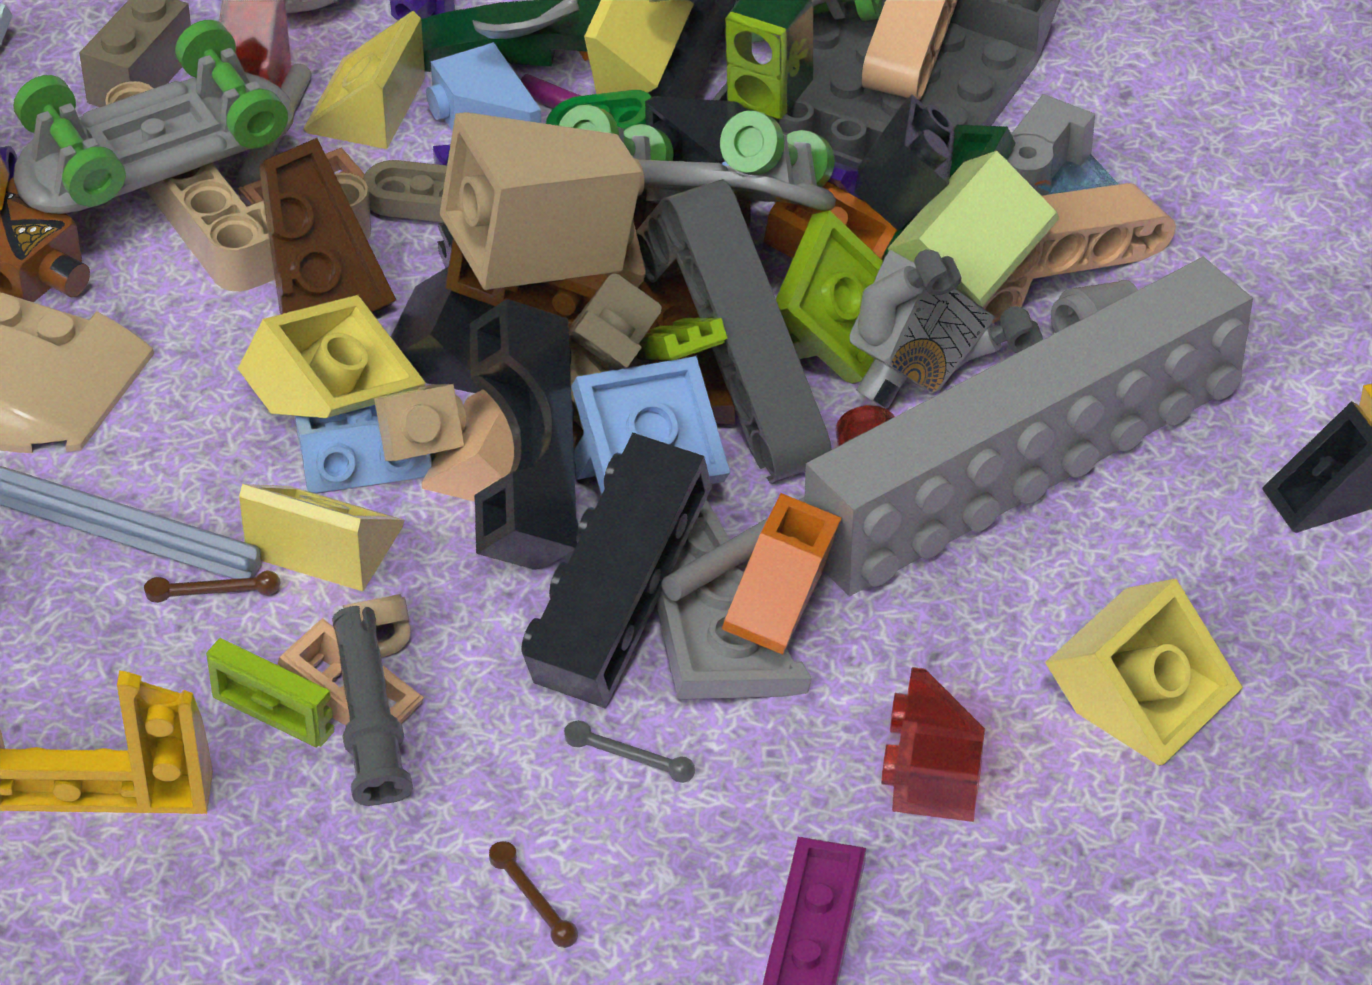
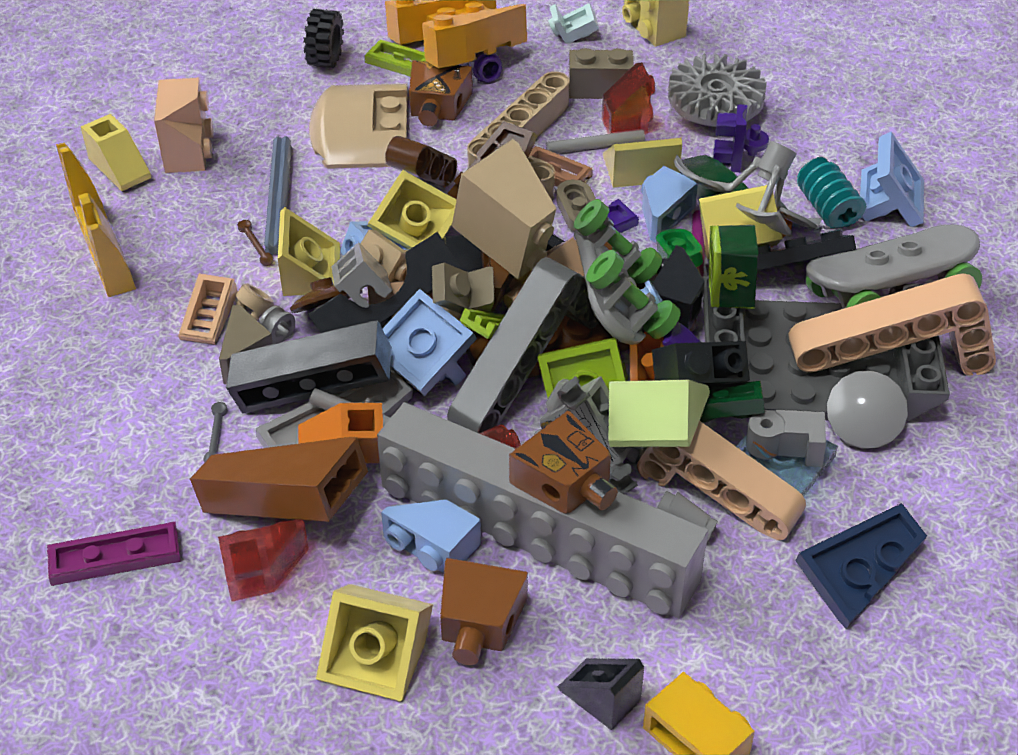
camera: 65 degrees right, 0 degrees up
(147, 135) = (523, 92): light grey piece -> none
(228, 304) = (421, 161): none -> reddish brown beam
(270, 693) = (180, 283): lime tile -> none
(372, 732) = (167, 326): dark grey pin -> none
(450, 604) = (278, 323): none -> light grey bush
(452, 520) = (322, 292): none -> reddish brown dish
(471, 653) = (241, 335): none -> dark tan slope
(482, 436) = (358, 270): none -> light grey hinge
(504, 856) = (120, 410): reddish brown hinge -> none
(830, 670) = (282, 481): none -> dark orange slope
(995, 553) = (432, 531): none -> light blue slope
(1017, 66) = (867, 409): none -> light grey dish
(1050, 330) = (563, 466): none -> dark orange torso
(1140, 540) = (480, 607): none -> dark orange torso
(1245, 189) = (861, 561): none -> dark blue wing

